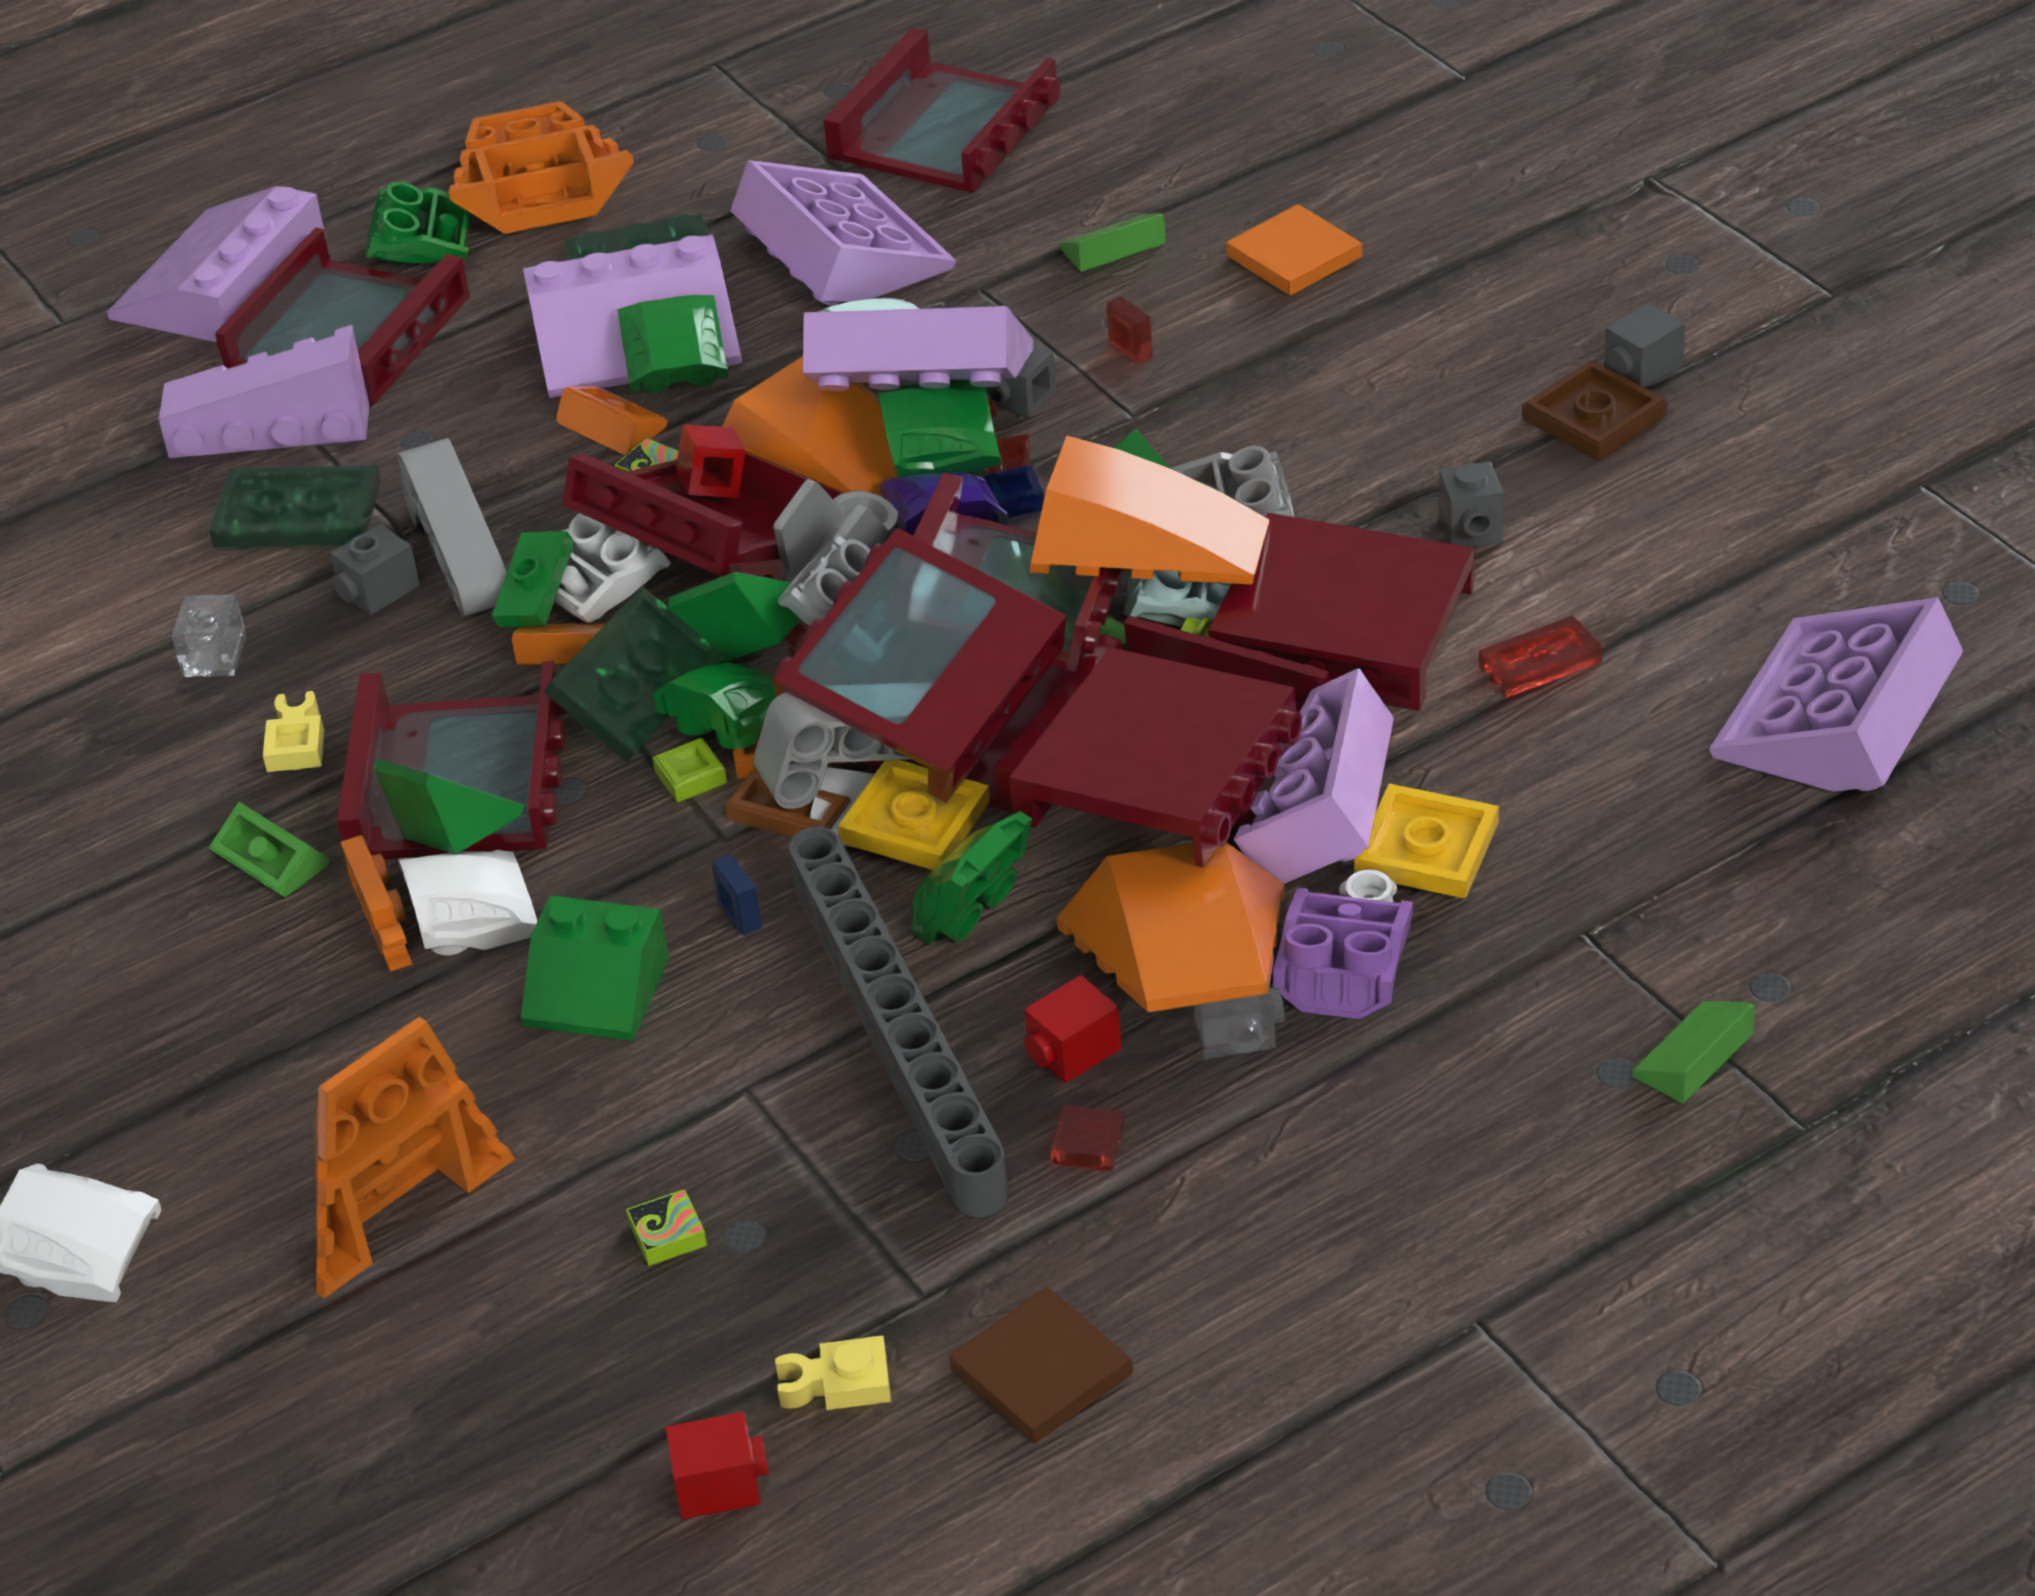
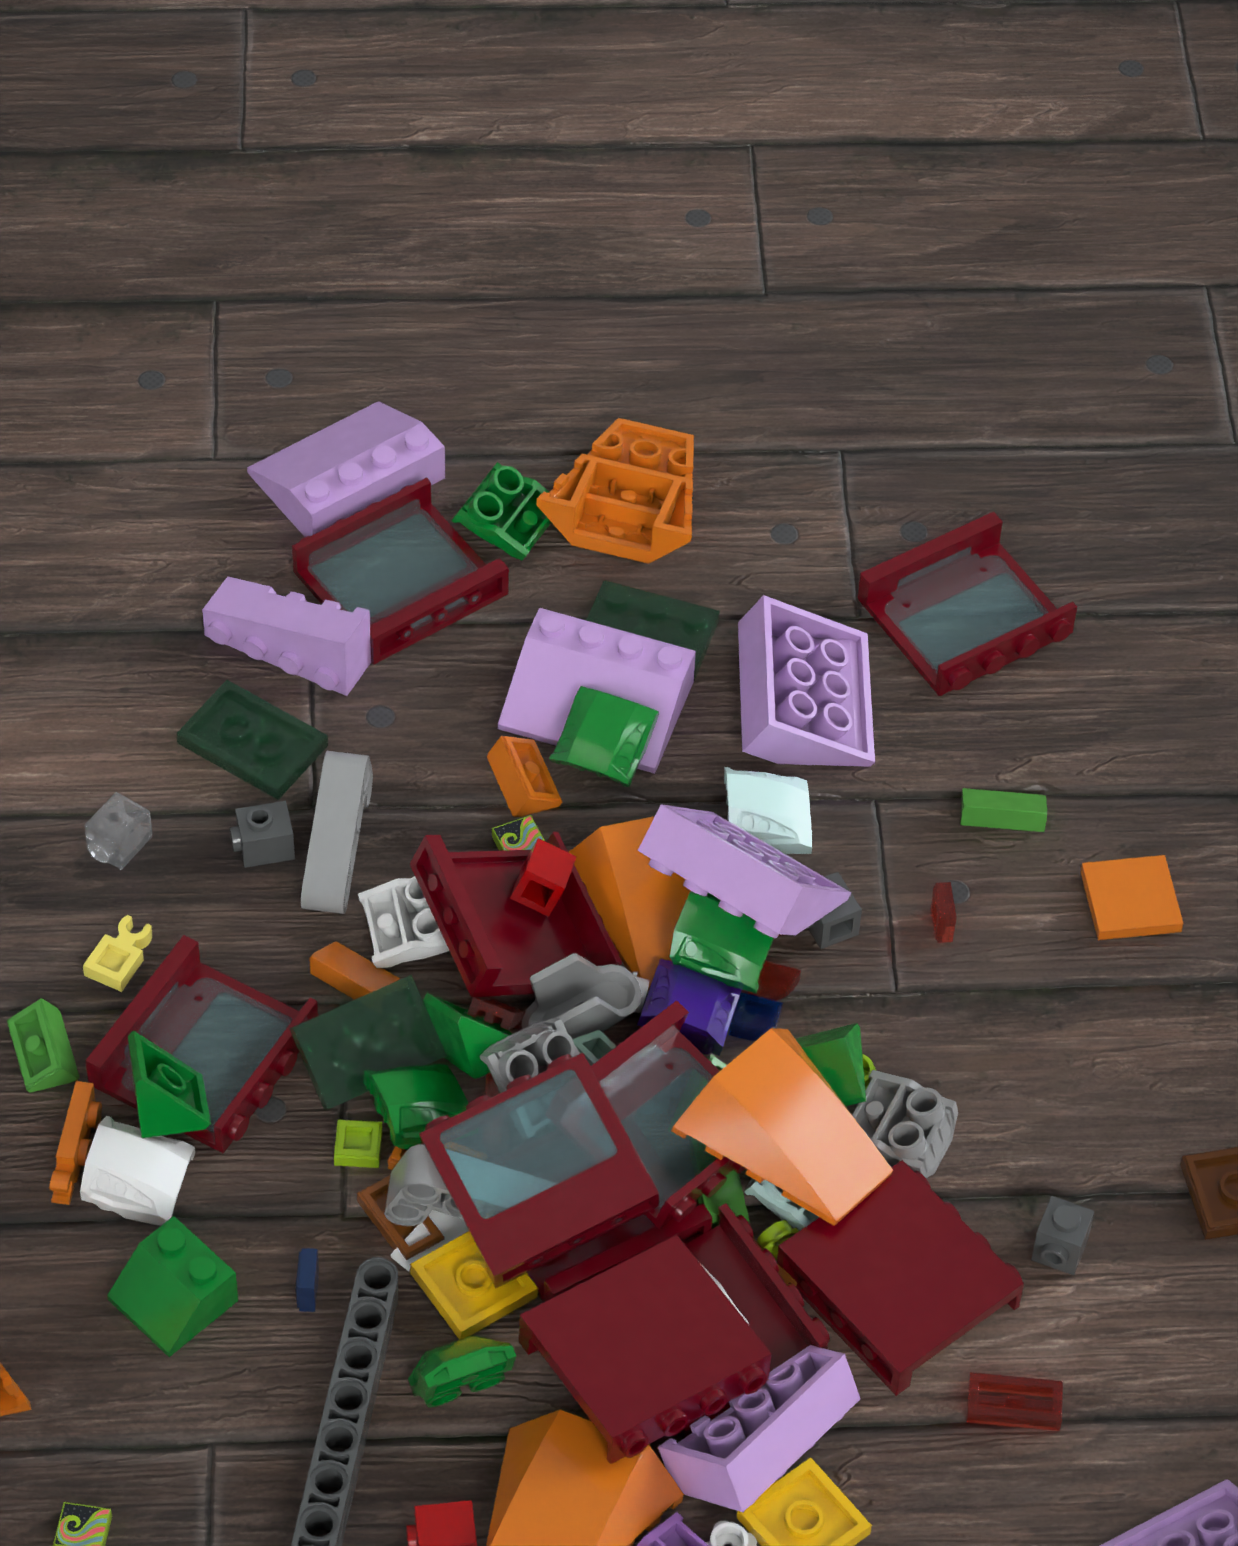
camera: 25 degrees right, 10 degrees up
(533, 579) = (357, 912): green plate -> none

